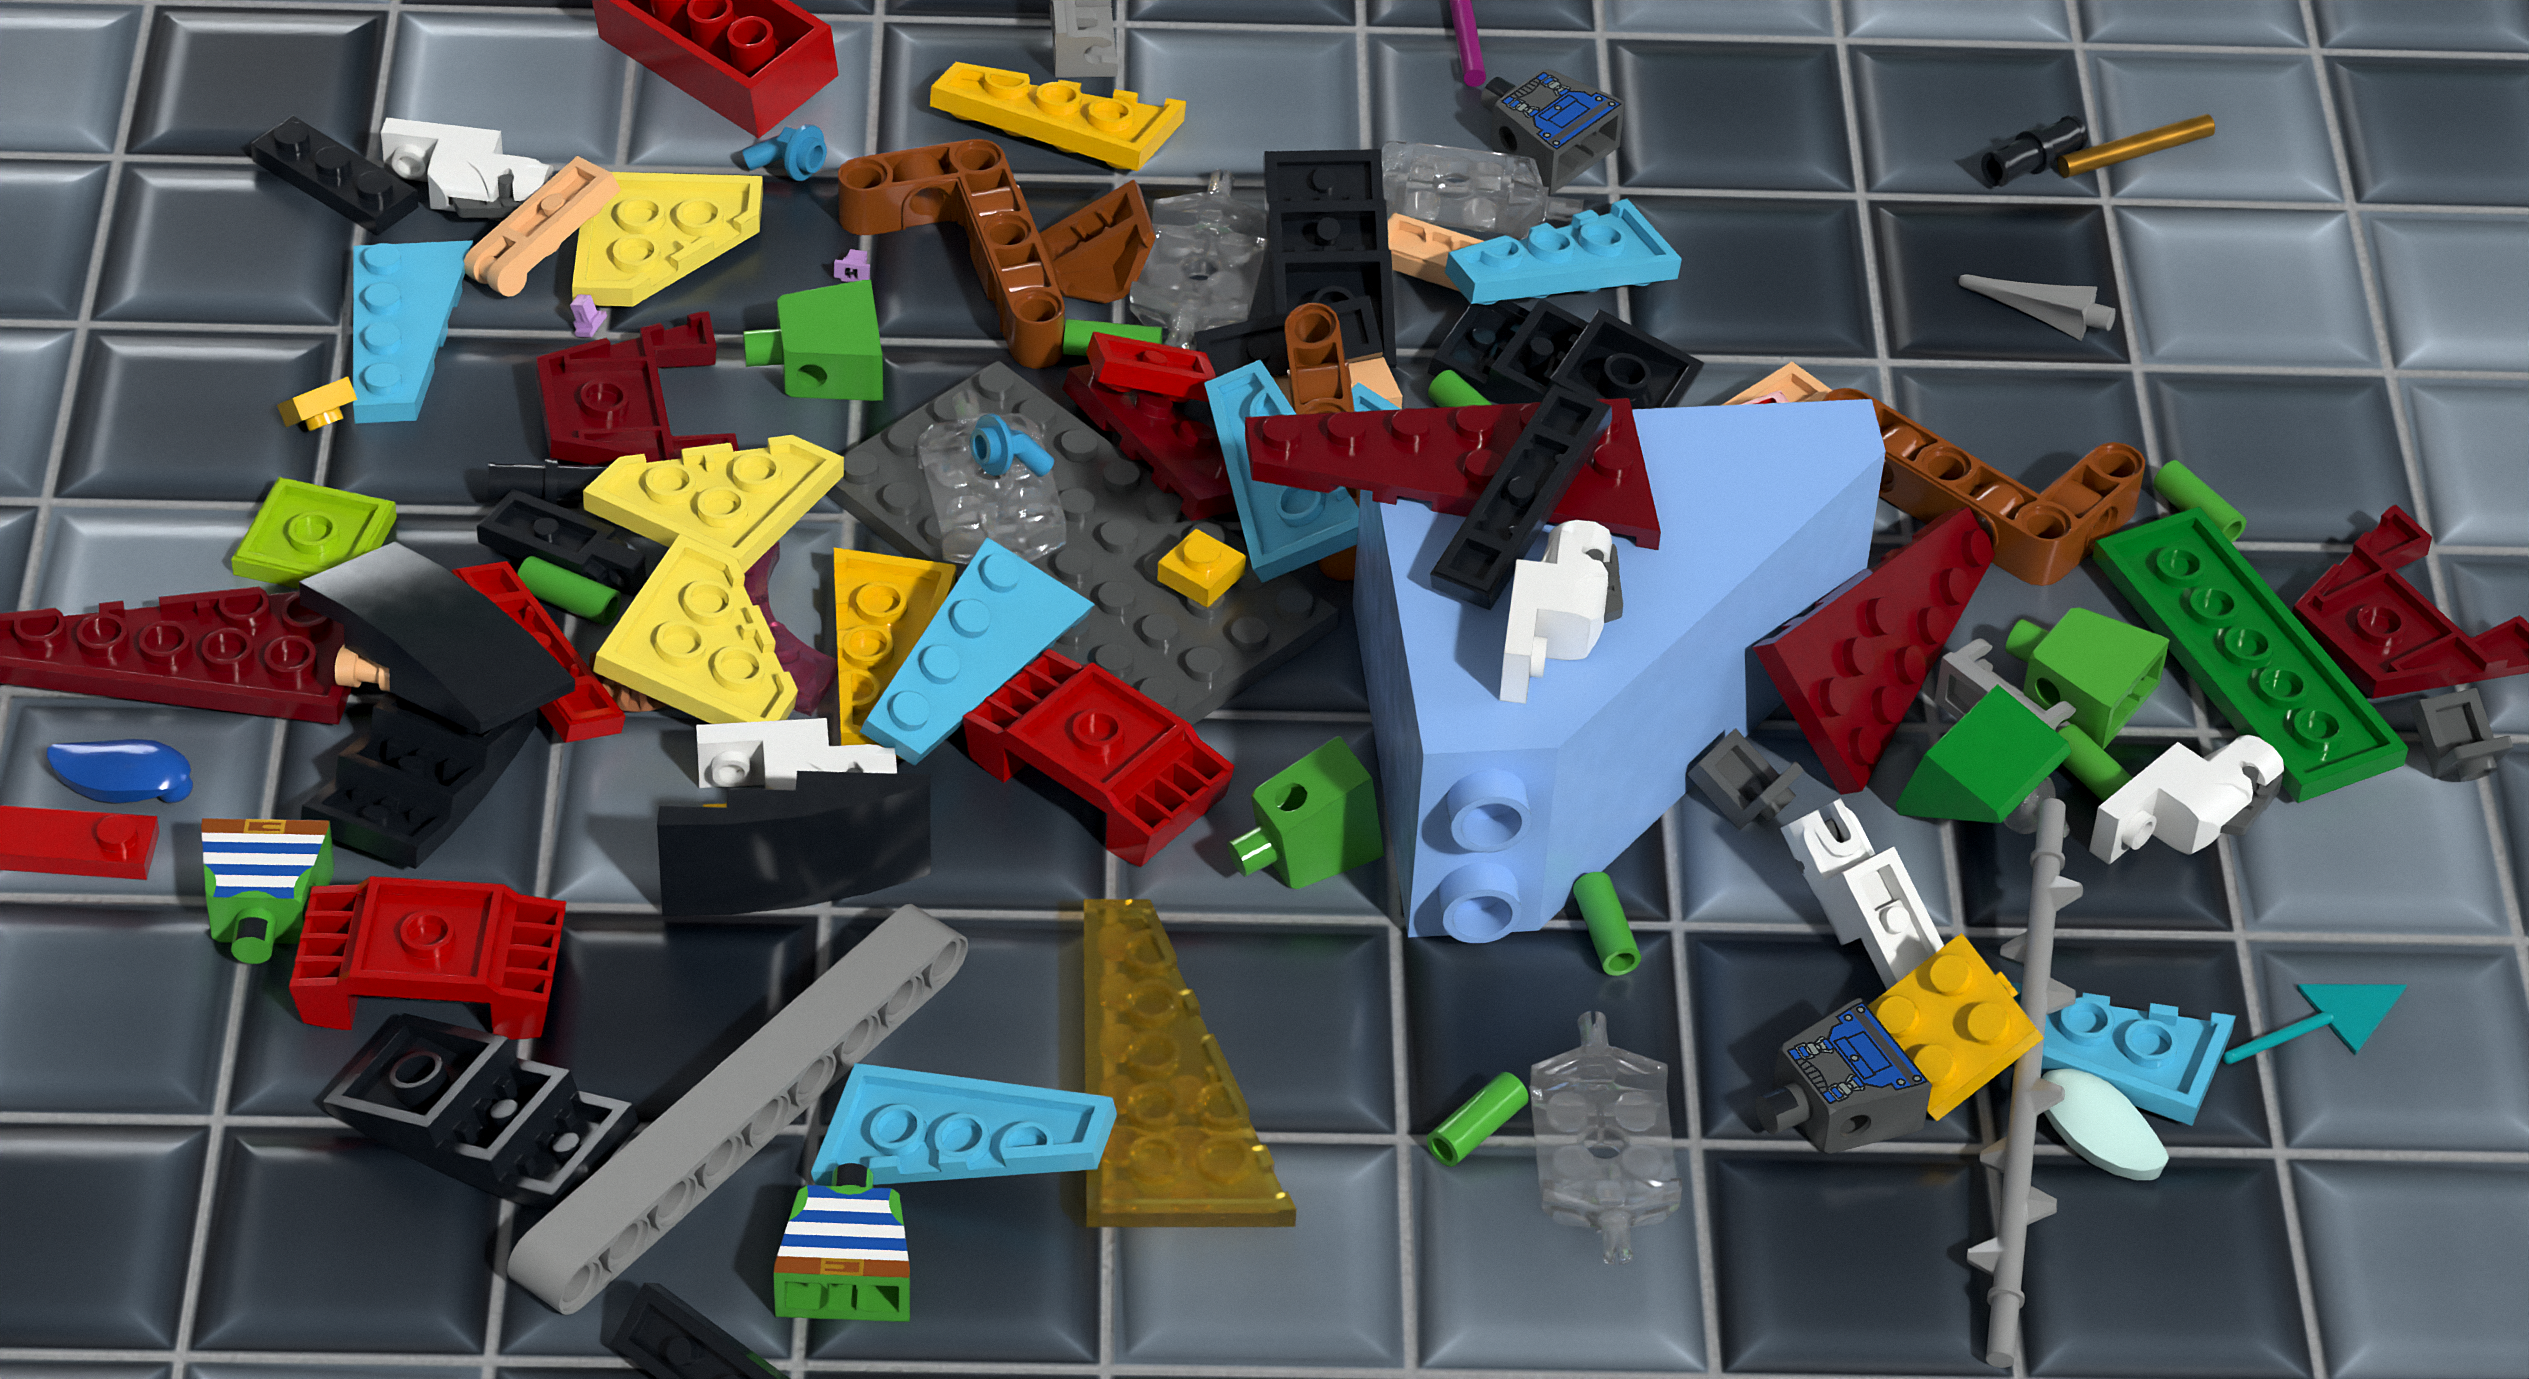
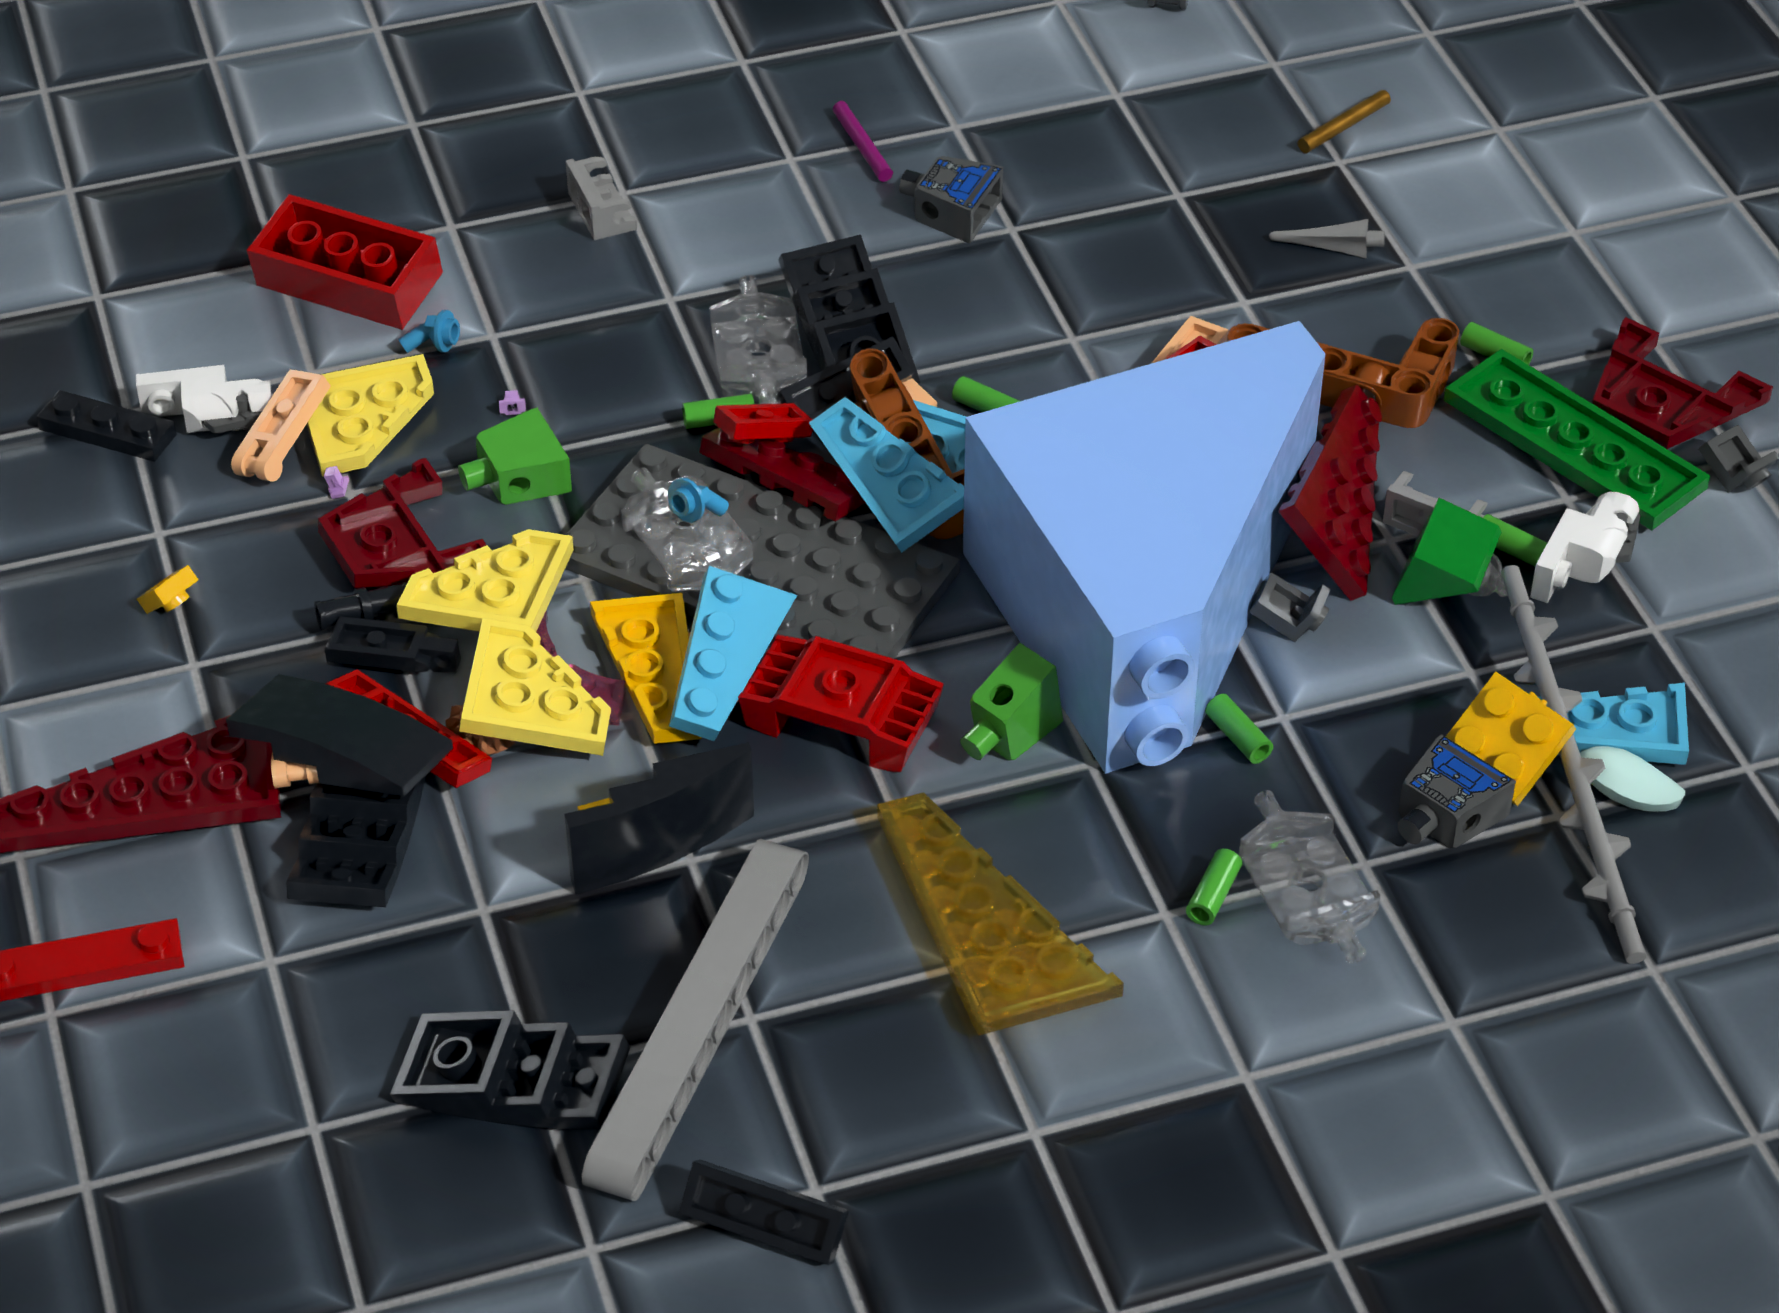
camera: 15 degrees left, 0 degrees up
(122, 770) = (135, 891): blue arm -> none
(262, 880) = (277, 945): torso -> none
(310, 531) = (201, 686): lime tile -> none
(400, 322) = (201, 518): medium azure wing -> none
(427, 945) = (425, 959): red plate -> none
(570, 591) = (411, 679): bright green axle -> none
(774, 752) = (619, 758): white plate -> none
(844, 1252) = (822, 1099): torso -> none
(959, 1128) = (853, 991): medium azure wing -> none
(976, 188) = (582, 329): dark orange beam -> none
(1059, 114) = (611, 264): yellow wing -> none
(1101, 246) = (683, 348): dark orange slope -> none
(1201, 568) = (857, 552): yellow plate -> none
(1423, 248) = (923, 299): light nougat plate -> none
(1450, 460) = (1059, 425): dark red wing -> none
(1497, 196) = (938, 250): clear plate -> none
(1521, 497) = (1107, 442): black plate -> none
(1522, 353) = (1036, 355): black slope -> none
(1560, 603) = (1163, 511): white plate -> none
(1578, 257) = (1012, 279): medium azure wing -> none
(1863, 891) = (1408, 662): white plate -> none
(2034, 151) = (1281, 139): black pin -> none
(2093, 665) = (1480, 470): bright green torso -> none
(2348, 1009) = (1747, 659): teal piece -> none

